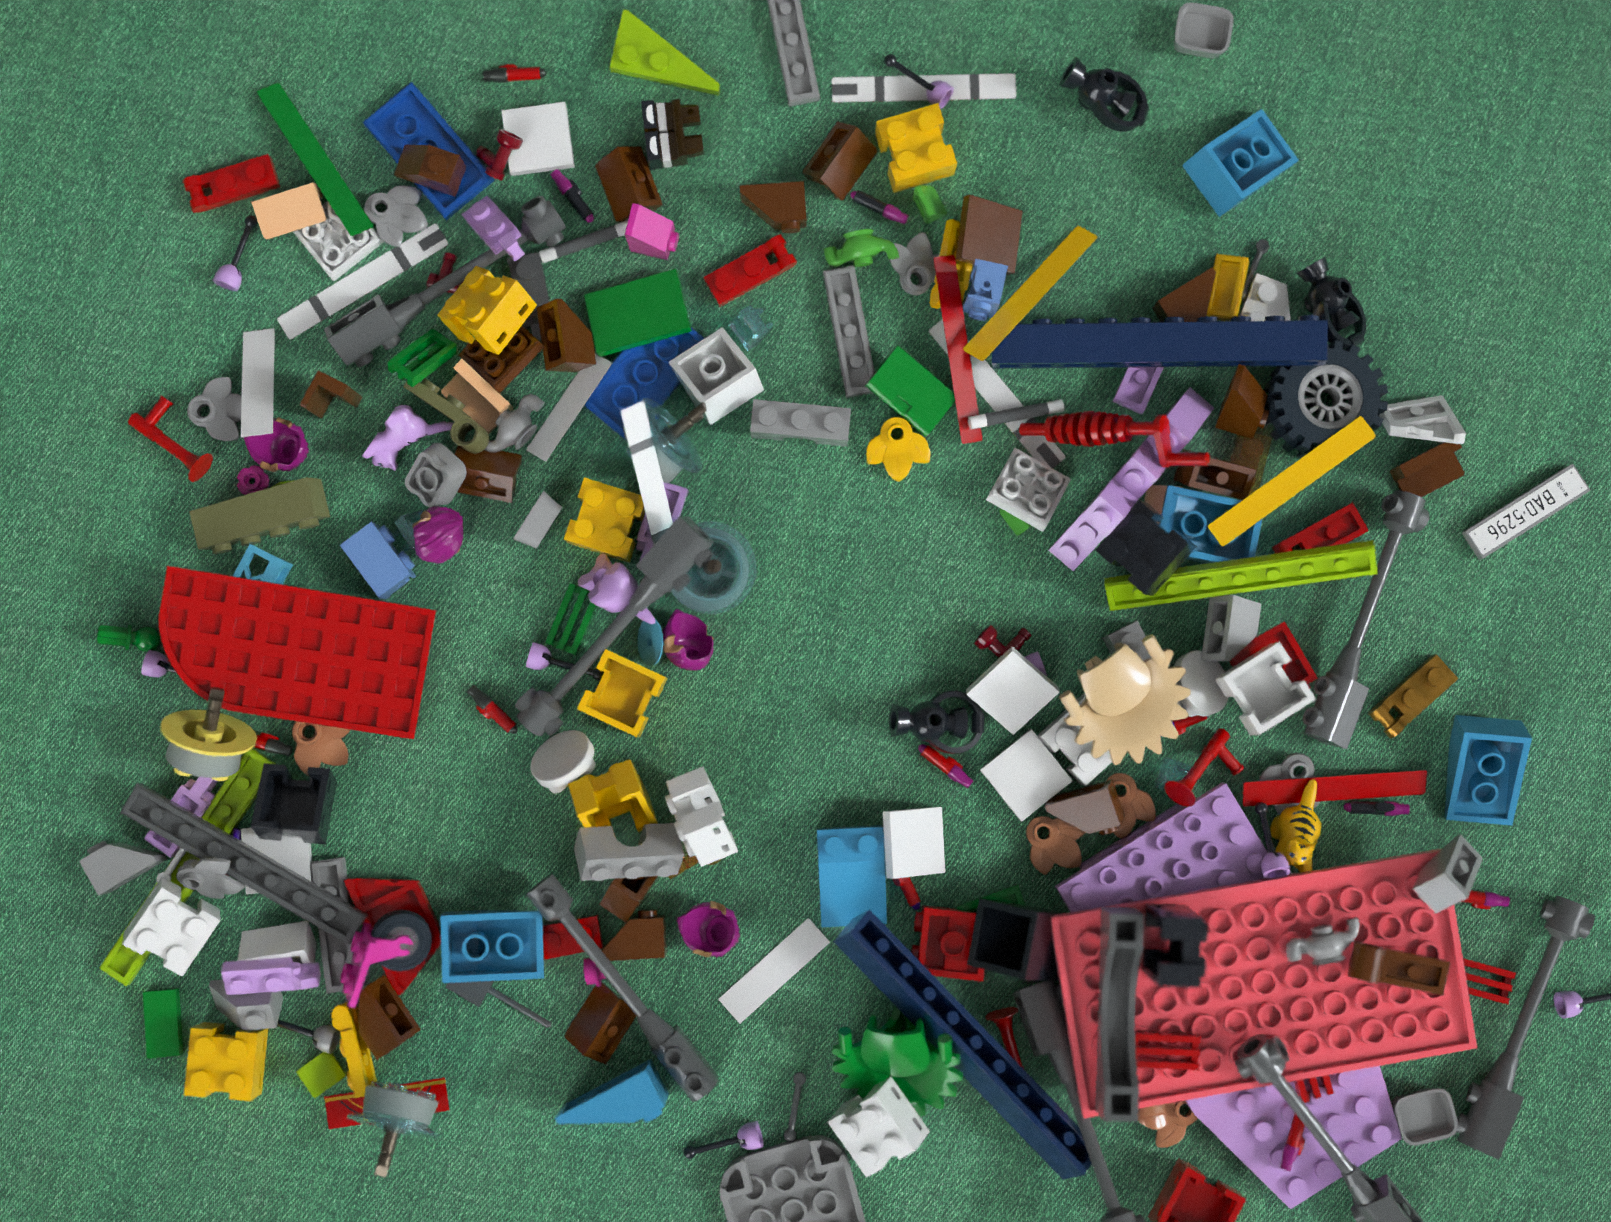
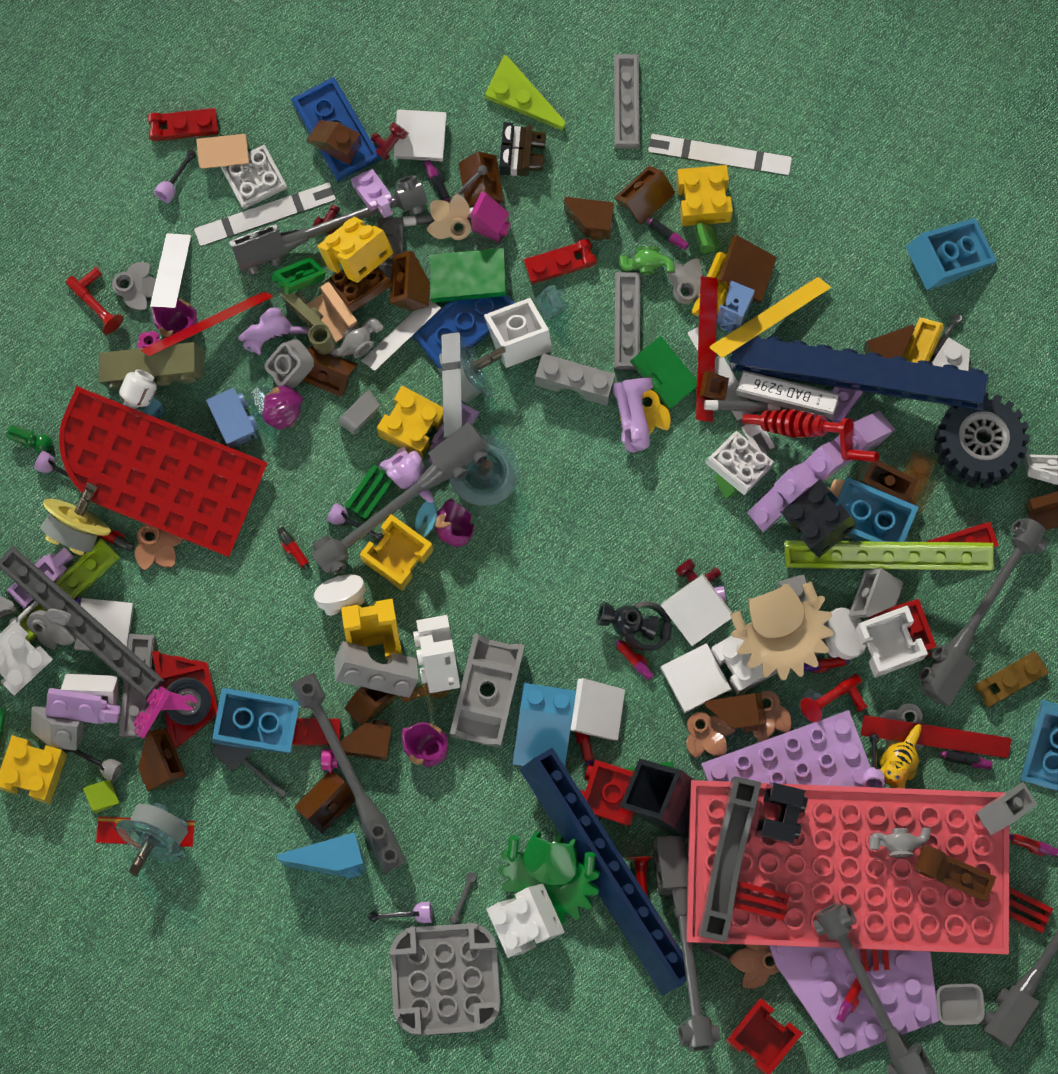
camera: 15 degrees right, 10 degrees down
(248, 552) = (138, 389): none -> white head
(294, 805) = (126, 586): black piece -> none
(315, 159) = (249, 118): green sticker -> none
(317, 445) = (206, 323): none -> red sticker
(323, 390) = (222, 283): reddish brown panel -> none
(353, 1047) = (130, 779): yellow hinge -> none
(400, 213) = (304, 172): light grey plate -> none
(511, 72) = (410, 84): piece -> none
(595, 239) = (447, 215): none -> tan plate
(627, 172) = (482, 170): none -> dark grey hinge
(774, 970) = (468, 790): white sticker -> none
(776, 810) = (482, 717): none -> light grey piece
(887, 468) = (633, 419): none -> lavender piece
(936, 92) = (728, 157): hinge -> none
(976, 396) = (714, 386): none -> reddish brown tile
(1072, 389) = (788, 394): none -> tile
(1100, 89) = (852, 179): black piece -> none
(1203, 30) = (940, 151): light grey piece -> none
(1243, 405) = (917, 430): reddish brown slope -> none
(1291, 481) = (942, 492): yellow sticker -> none
(1328, 298) = (999, 365): black piece -> none

